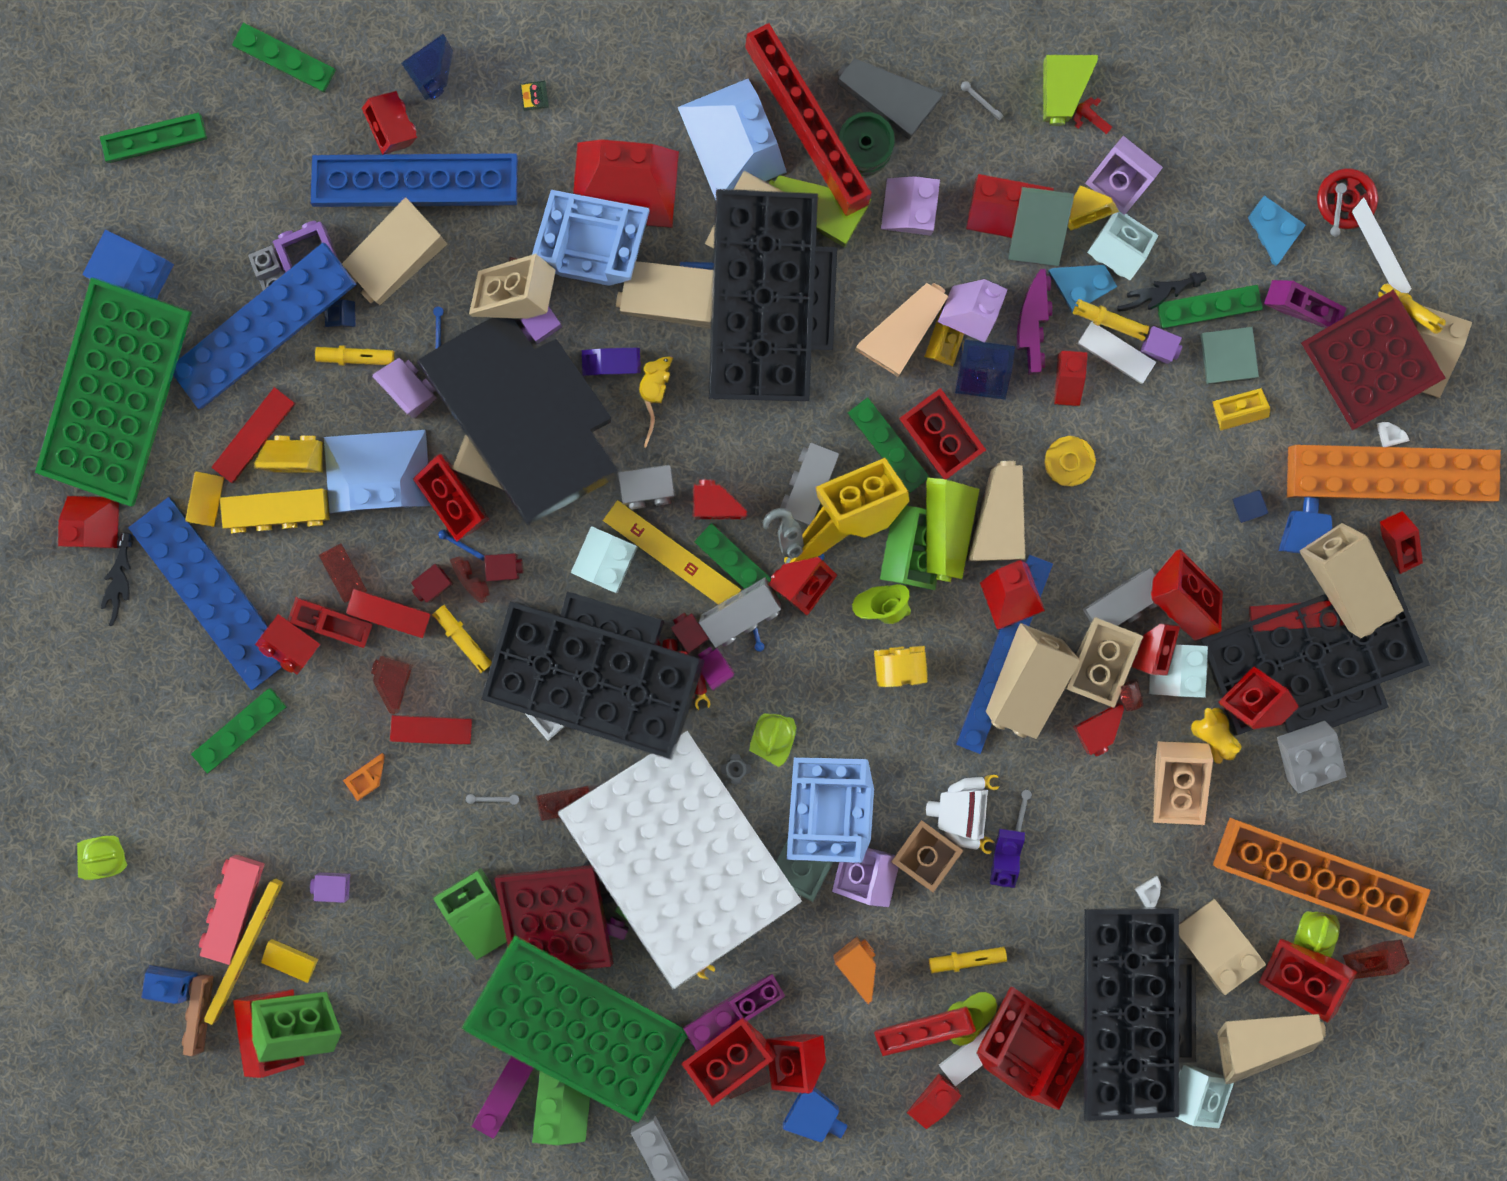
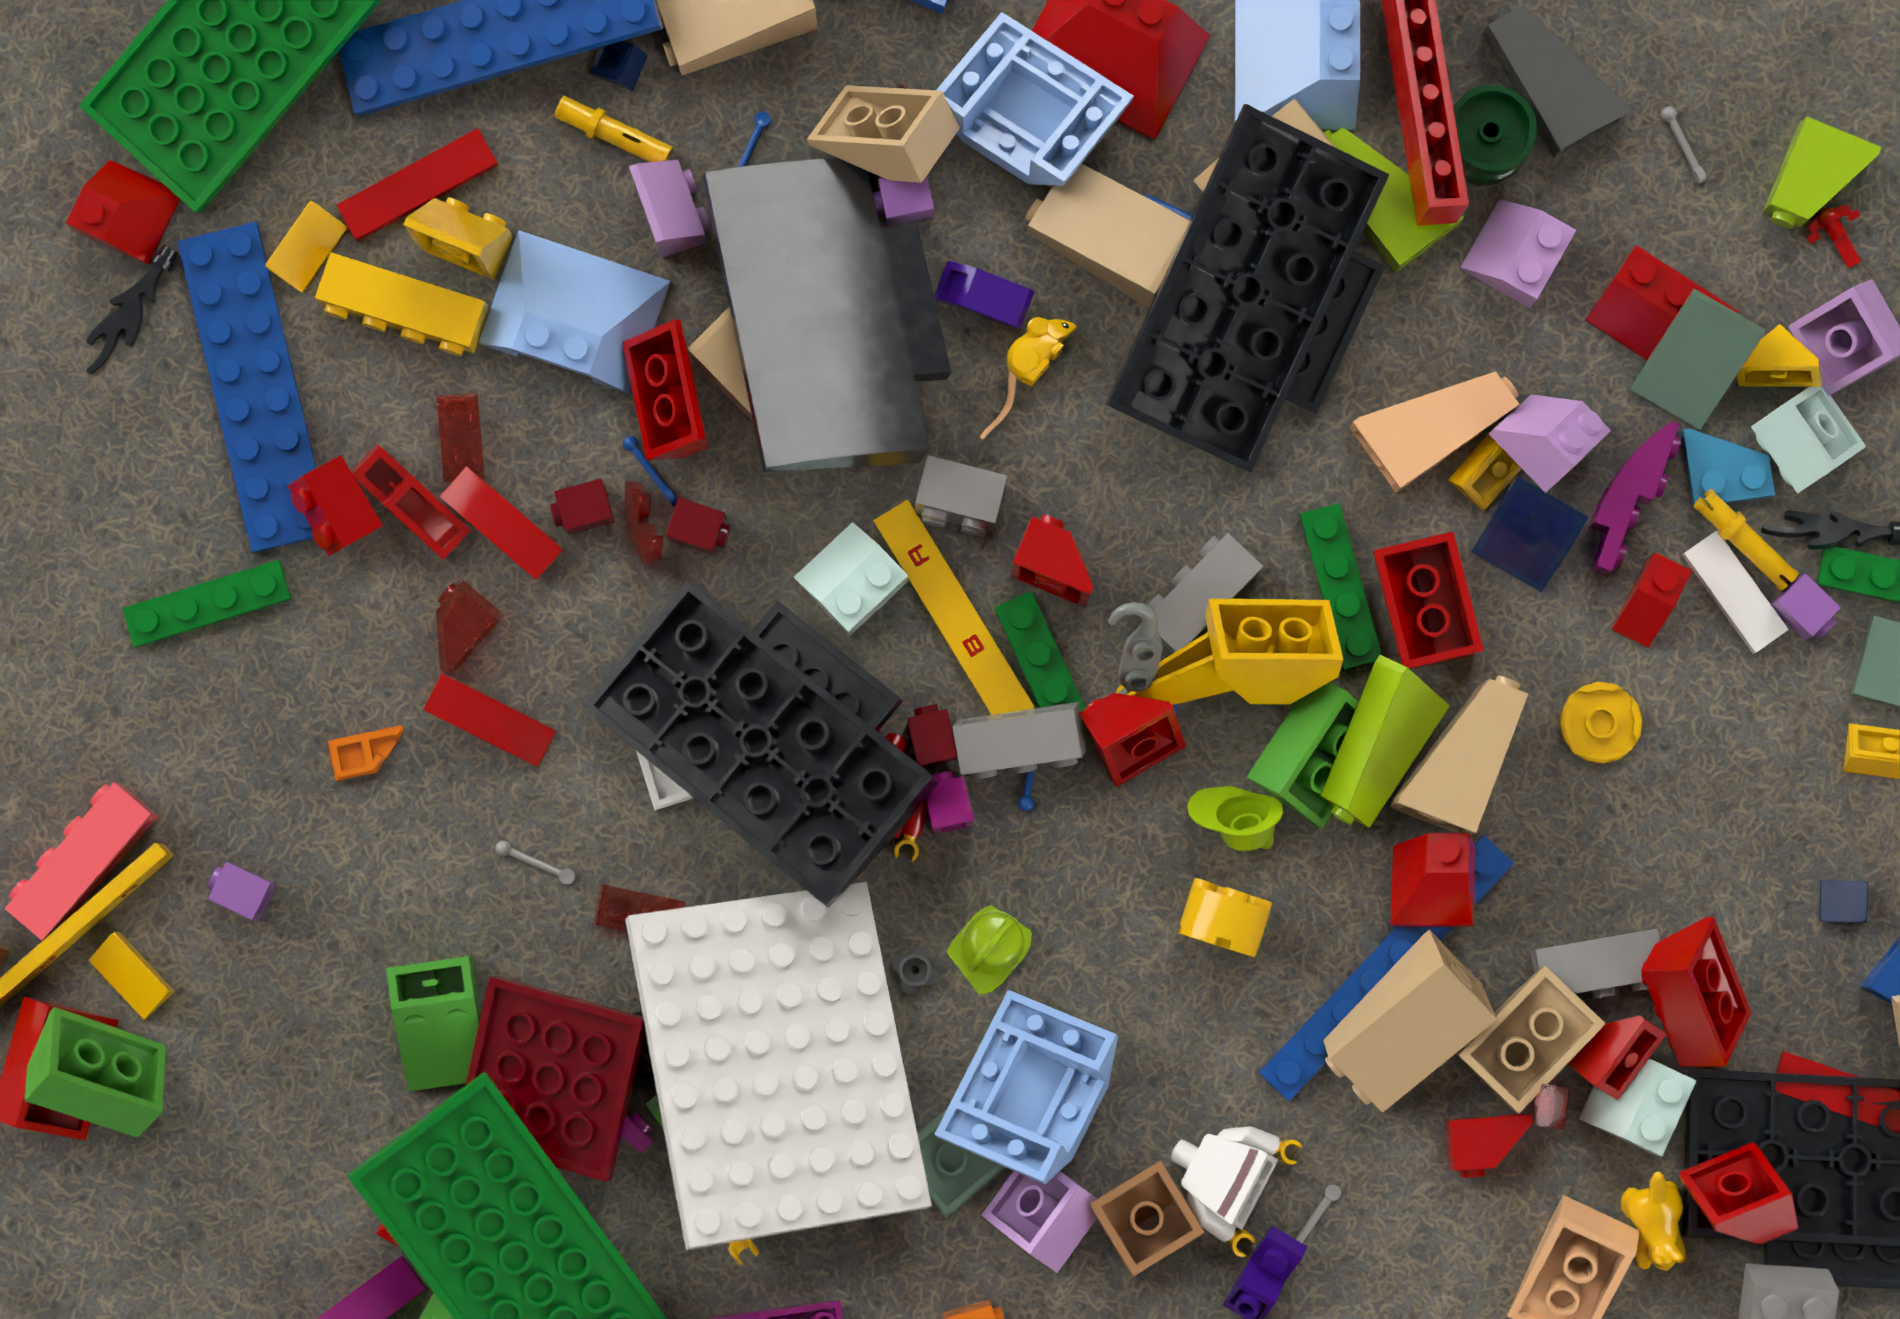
camera: 20 degrees right, 5 degrees down
(462, 638) = (593, 607): yellow pin -> none

